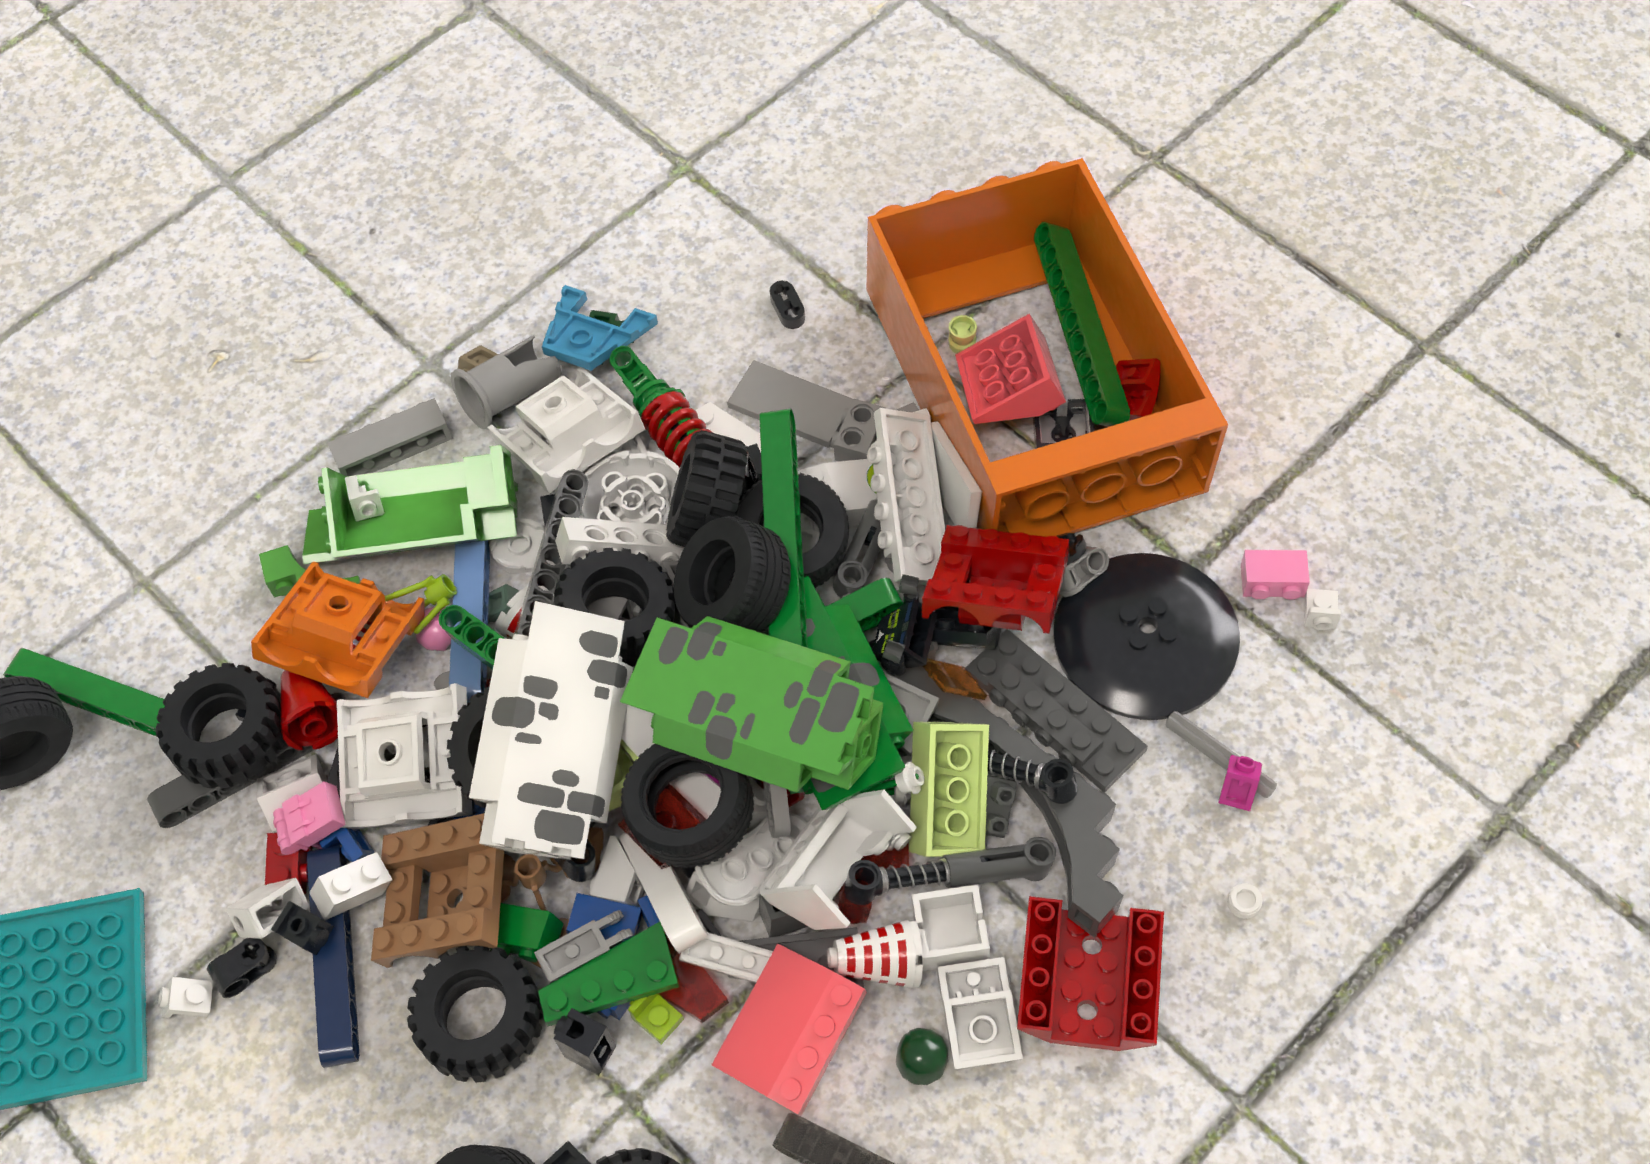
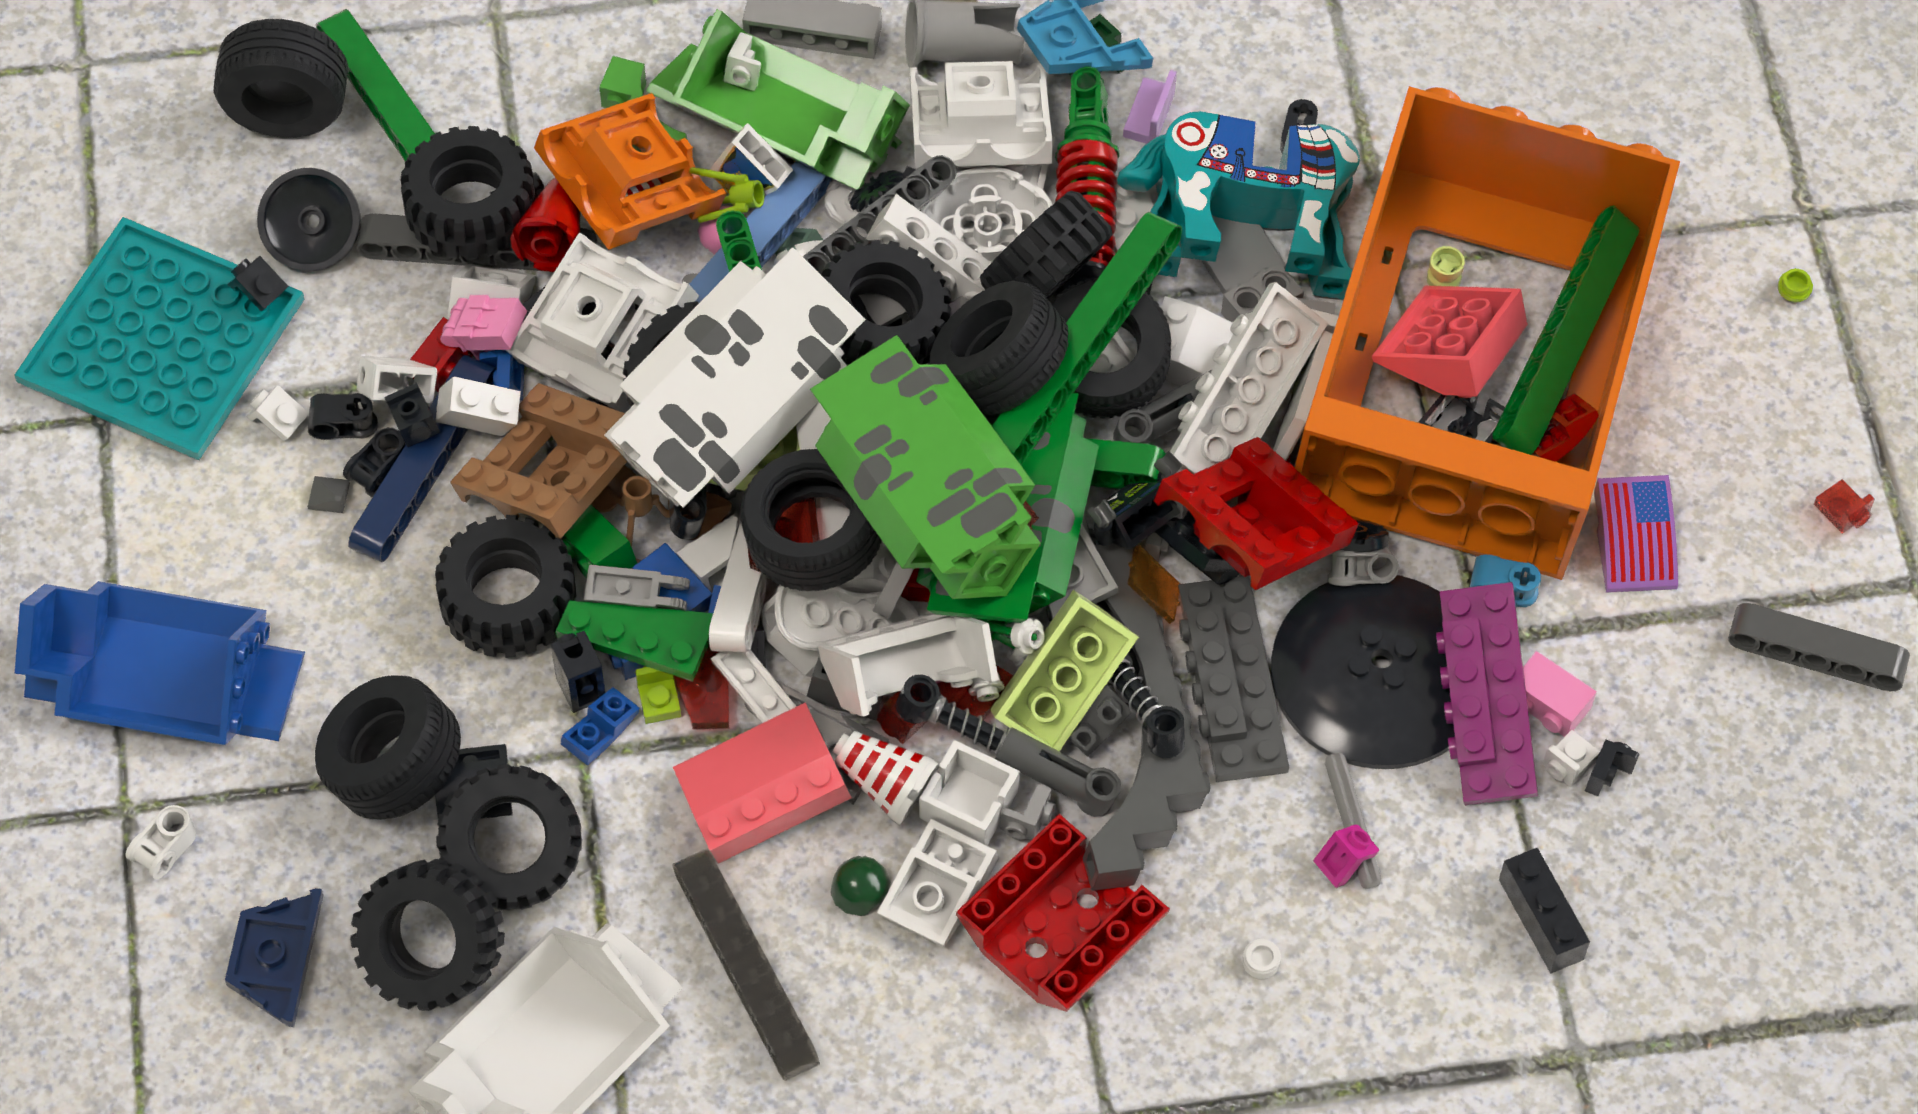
camera: 30 degrees right, 0 degrees up
(81, 832) = (286, 214): none -> black dish
(97, 905) = (257, 282): none -> black bracket
(275, 1035) = (328, 494): none -> dark grey slope
(295, 988) = (372, 463): none -> black piece
(421, 560) = (751, 156): none -> white torso
(525, 539) = (875, 189): none -> black gear
(629, 1072) = (601, 727): none -> blue slope
(676, 353) = (1150, 109): none -> lavender panel
(760, 369) = (1208, 171): none -> teal animal
(1006, 905) = (1028, 824): none -> light grey bracket
(1177, 517) = (1495, 570): none -> dark azure piece
(1187, 205) = (1795, 285): none -> lime plate
(1239, 601) = (1486, 694): none -> magenta plate
(1249, 435) = (1636, 533): none -> slope
(1343, 325) = (1844, 506): none -> clear red bracket
(1351, 597) = (1611, 757): none -> black bracket
(1402, 727) = (1544, 910): none -> black brick
(1408, 426) = (1819, 647): none -> dark grey beam

